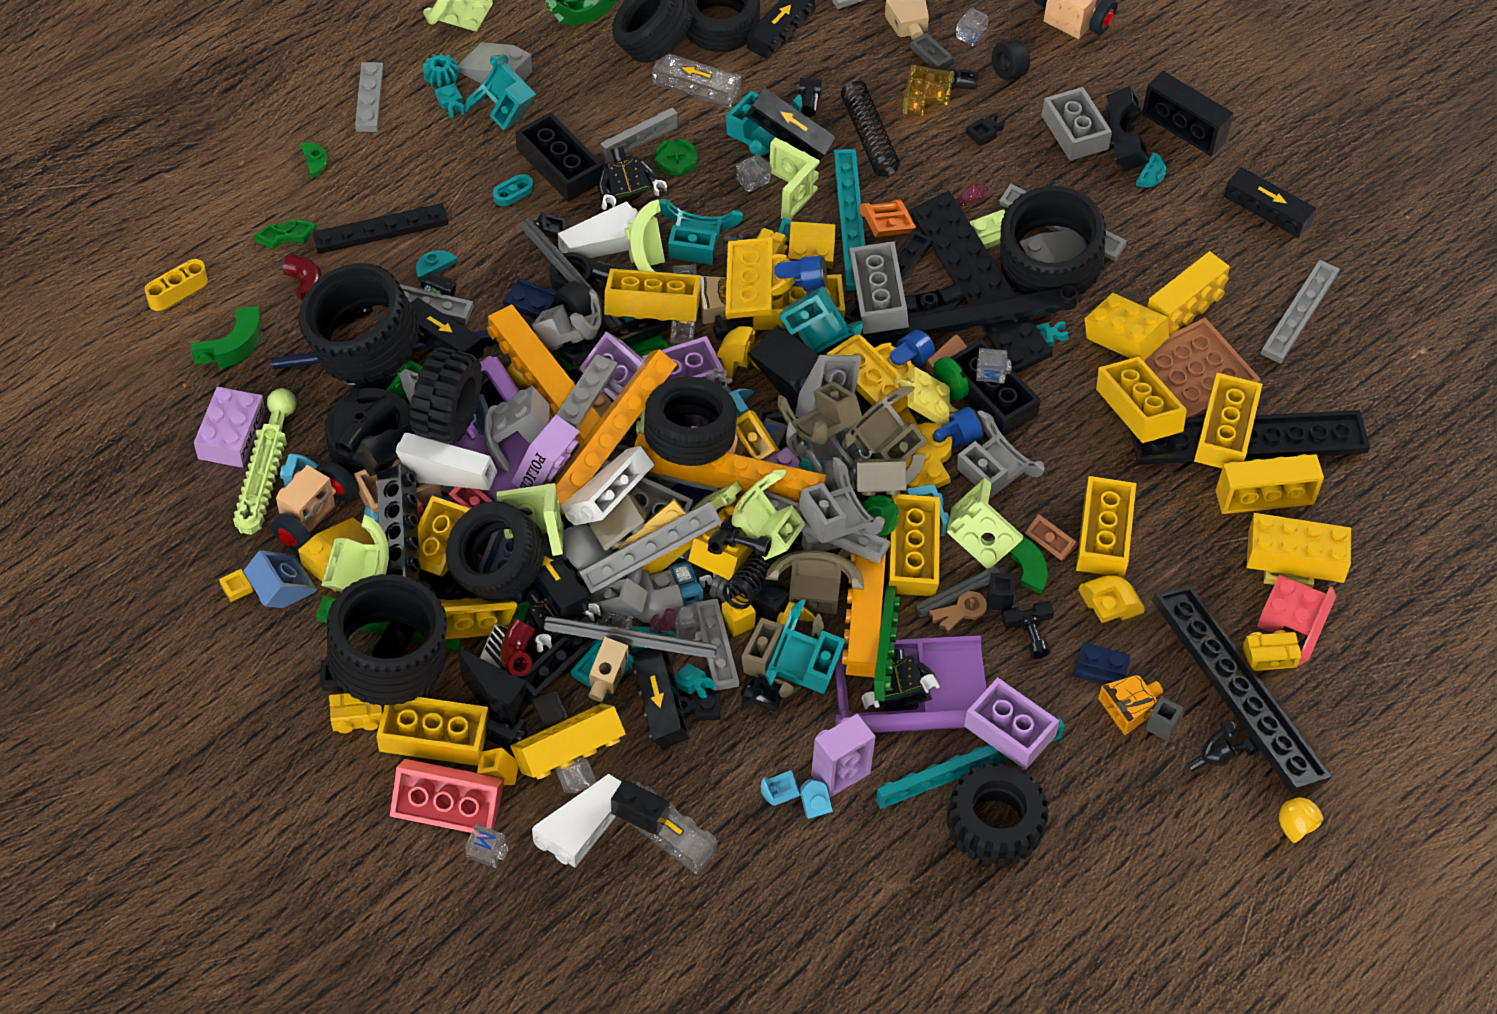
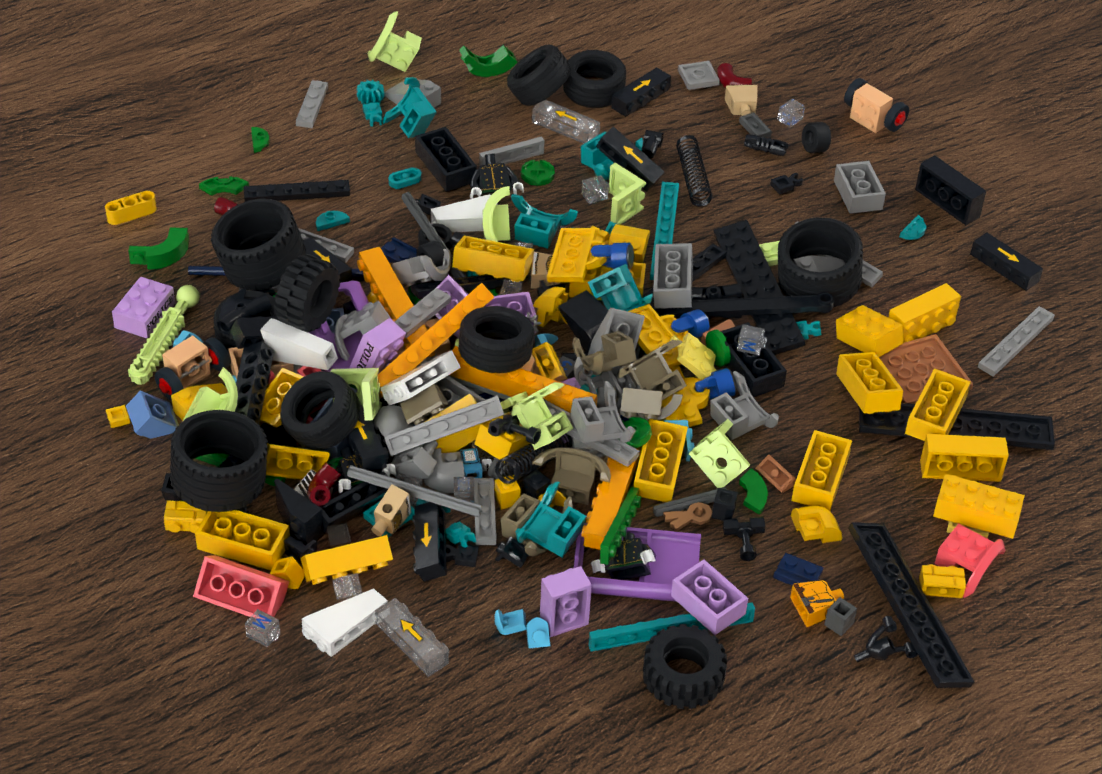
camera: 10 degrees right, 10 degrees down
(438, 284) = (330, 232): black brick -> none
(640, 807) = (391, 613): black brick -> none
(664, 623) = (447, 486): clear pink arm -> none
(888, 223) = (693, 232): orange plate -> none
(926, 86) = (744, 147): clear yellow brick -> none
(973, 191) = (767, 225): clear pink arm -> none
(1129, 148) = (899, 182): black arch -> none
(1299, 818) = (940, 707): yellow hair -> none

